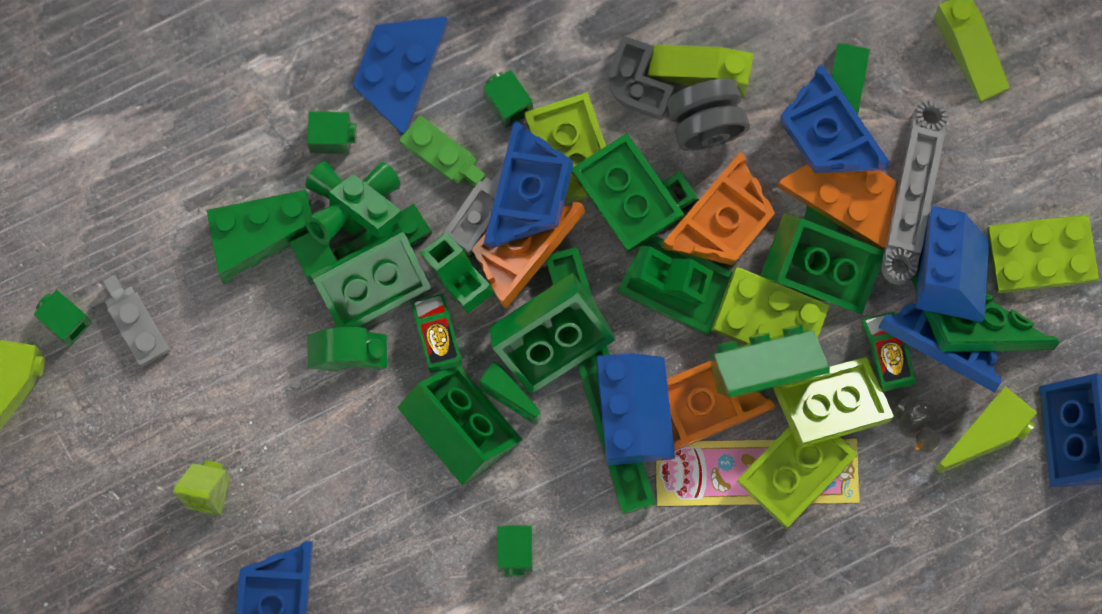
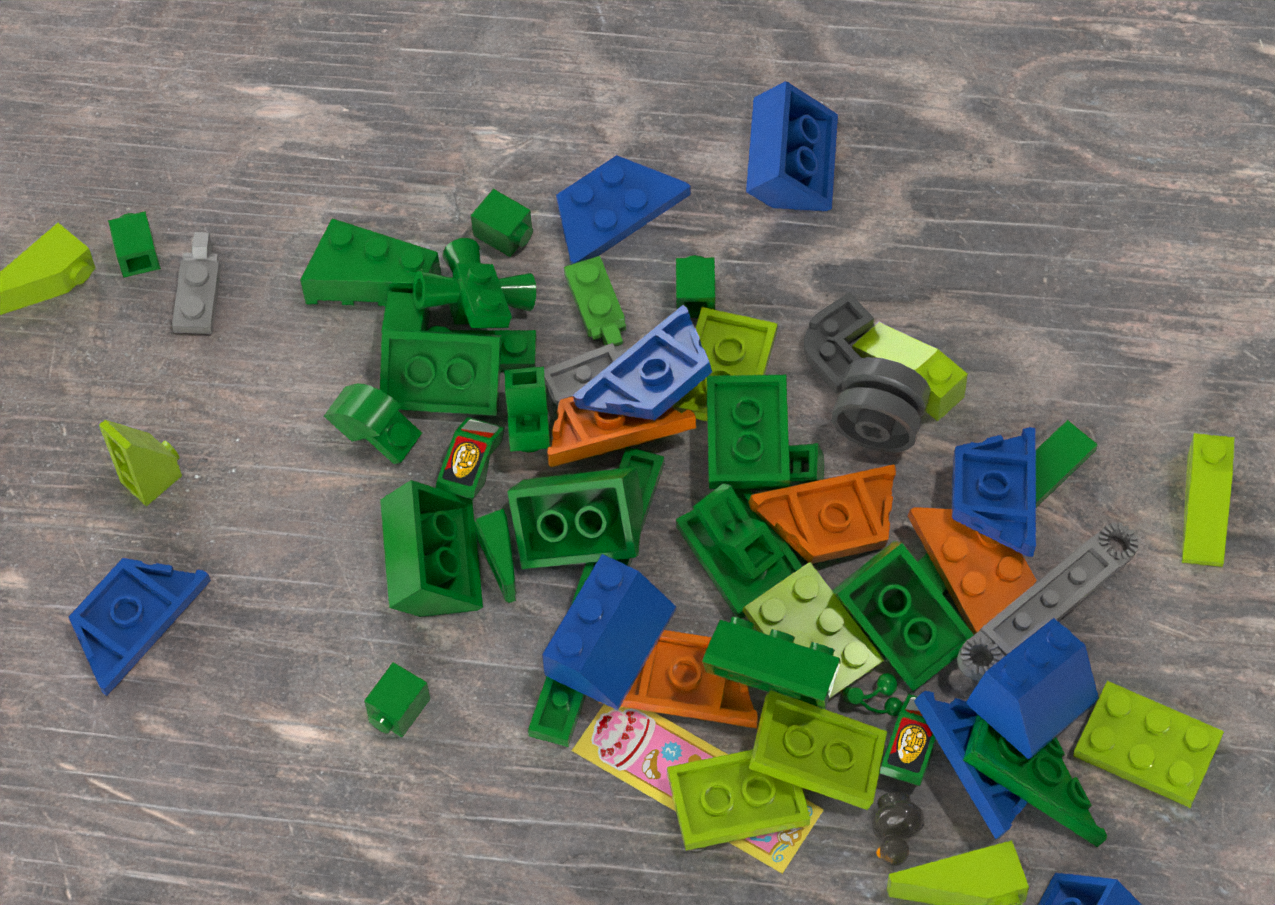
camera: 35 degrees right, 15 degrees down
(842, 322) = (885, 685): none -> green piece

